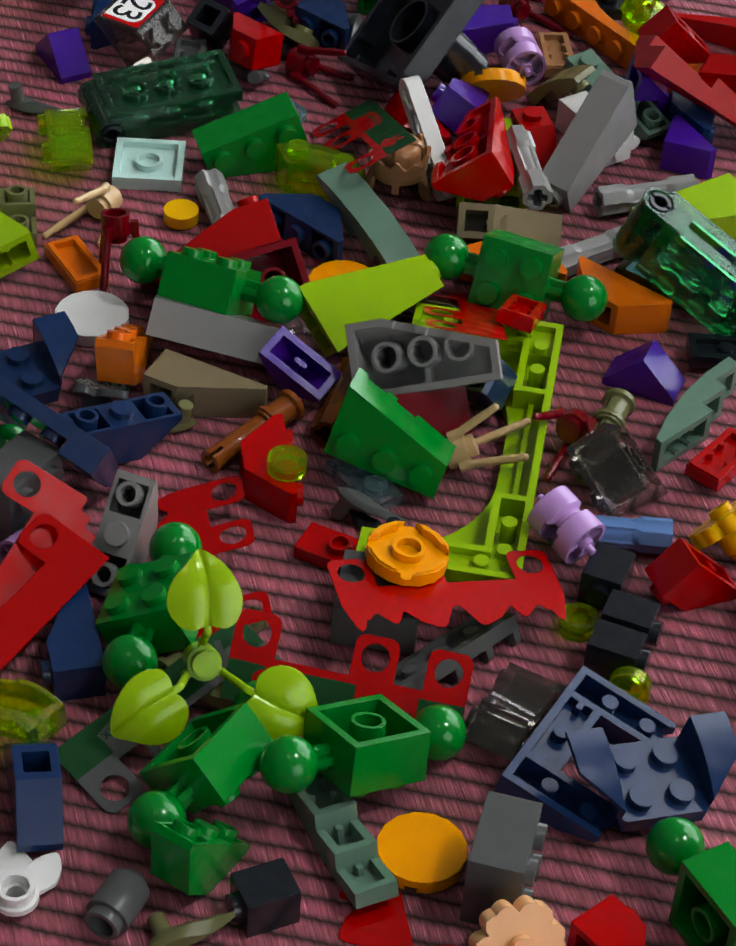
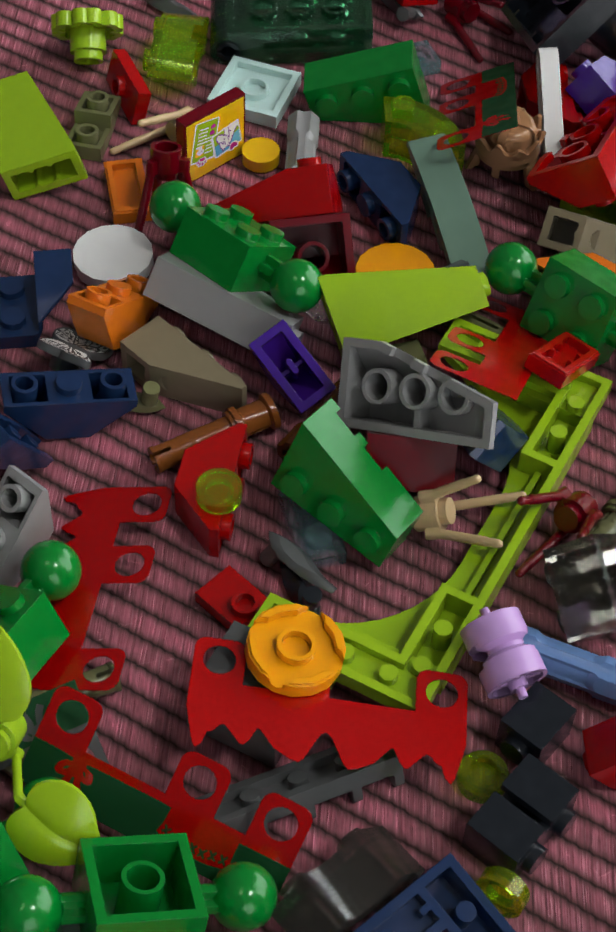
camera: 20 degrees right, 10 degrees up
(31, 171) = (128, 83): none -> red plate
(142, 195) = (212, 133): none -> tile

